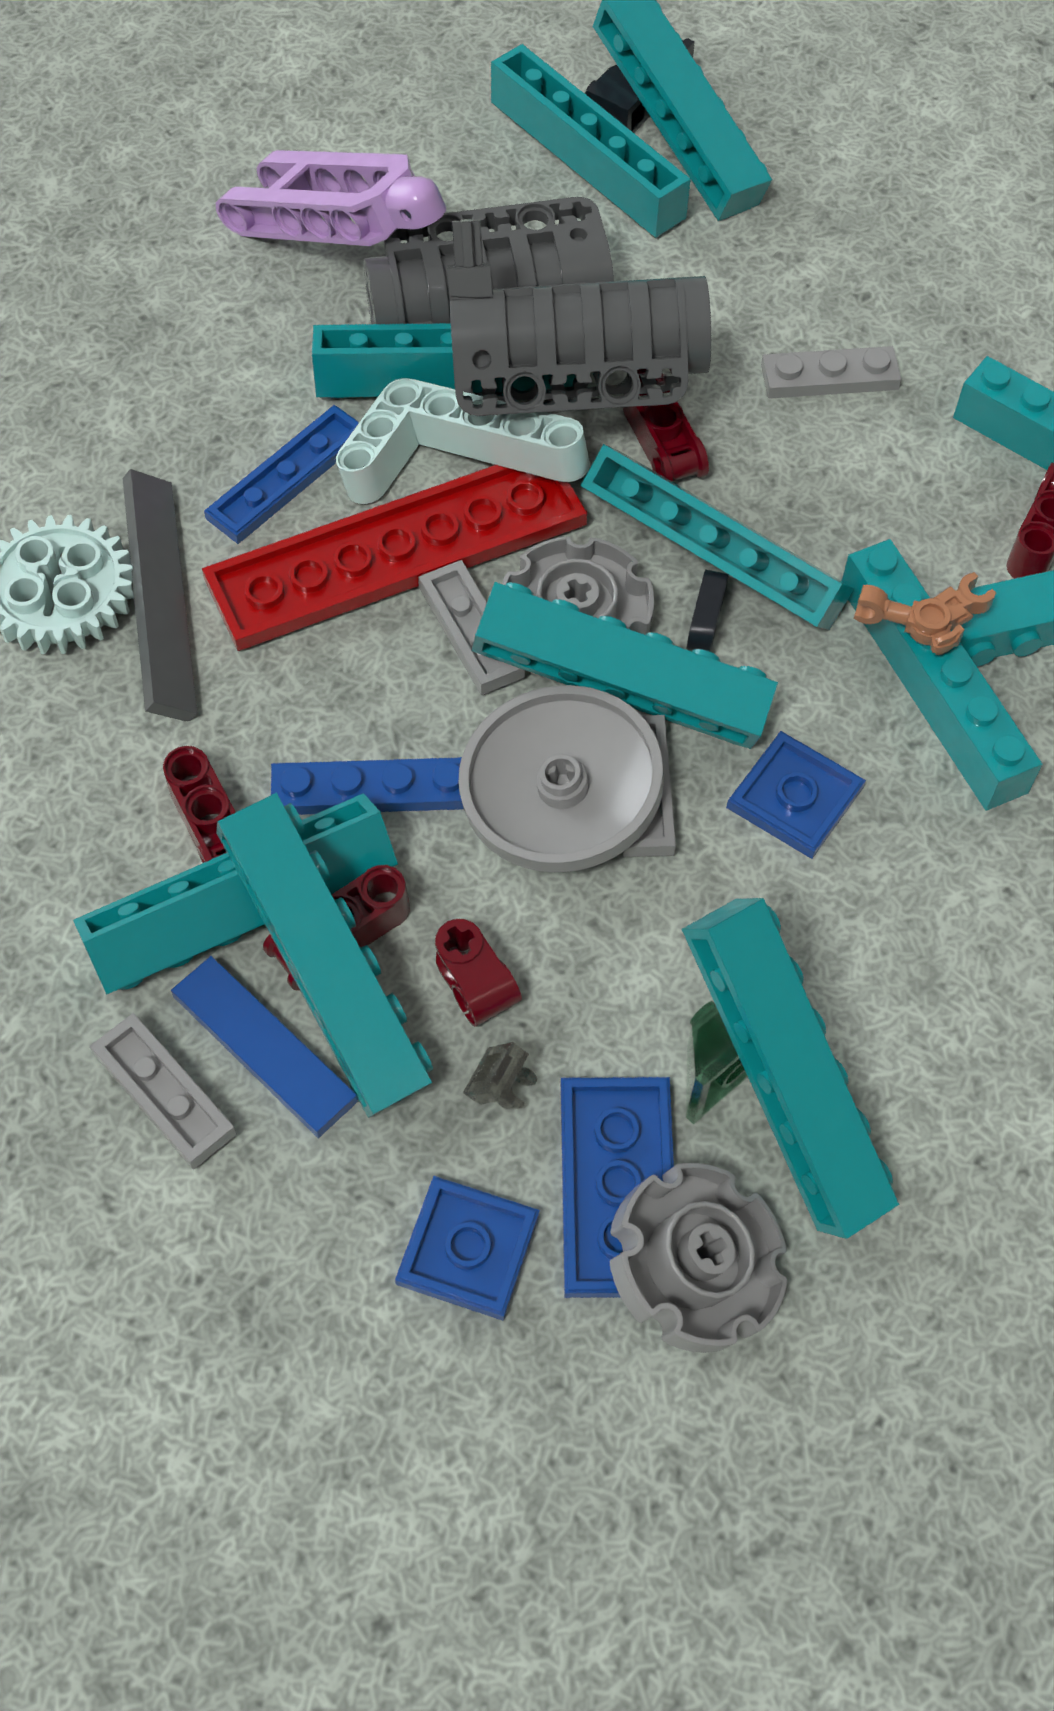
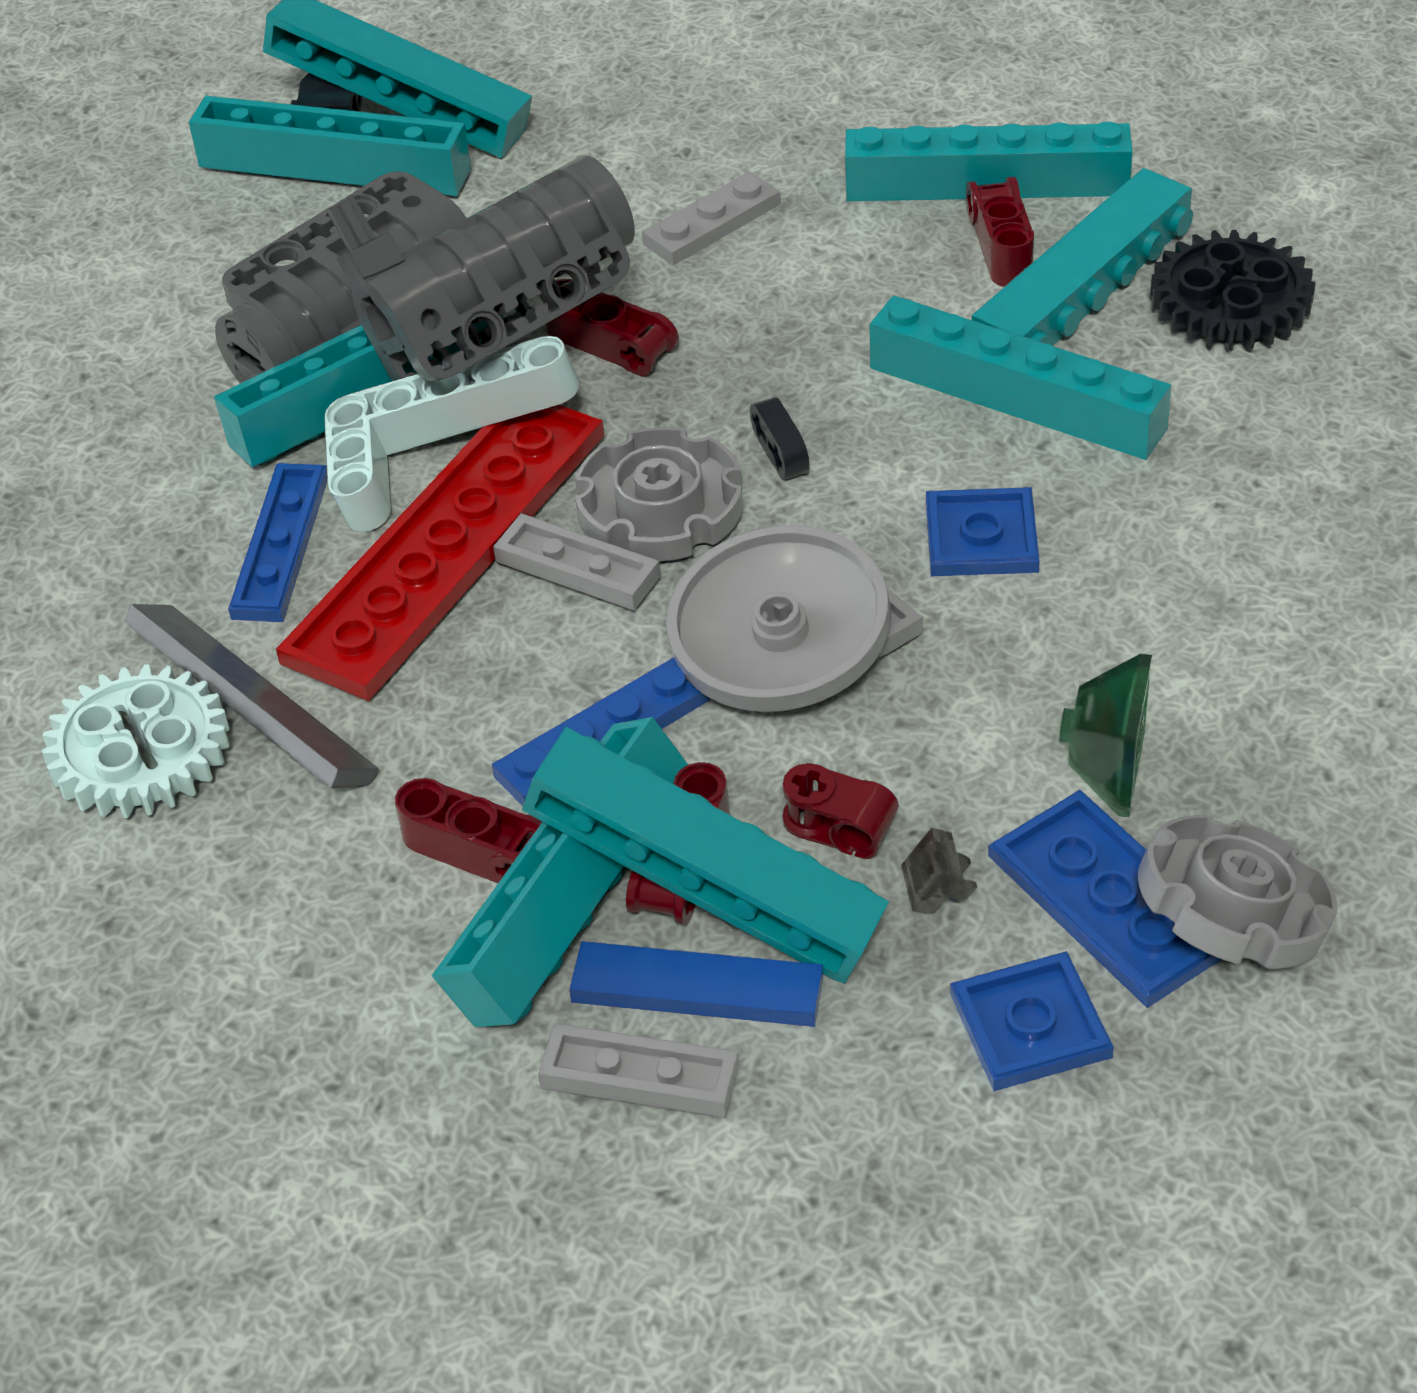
camera: 30 degrees left, 15 degrees down
(332, 186) = (90, 294): lavender piece -> none
(635, 667) = (701, 508): teal brick -> none
(717, 537) = (736, 374): teal brick -> none
(791, 1066) = (1194, 684): teal brick -> none
(929, 619) = (987, 328): nougat piece -> none

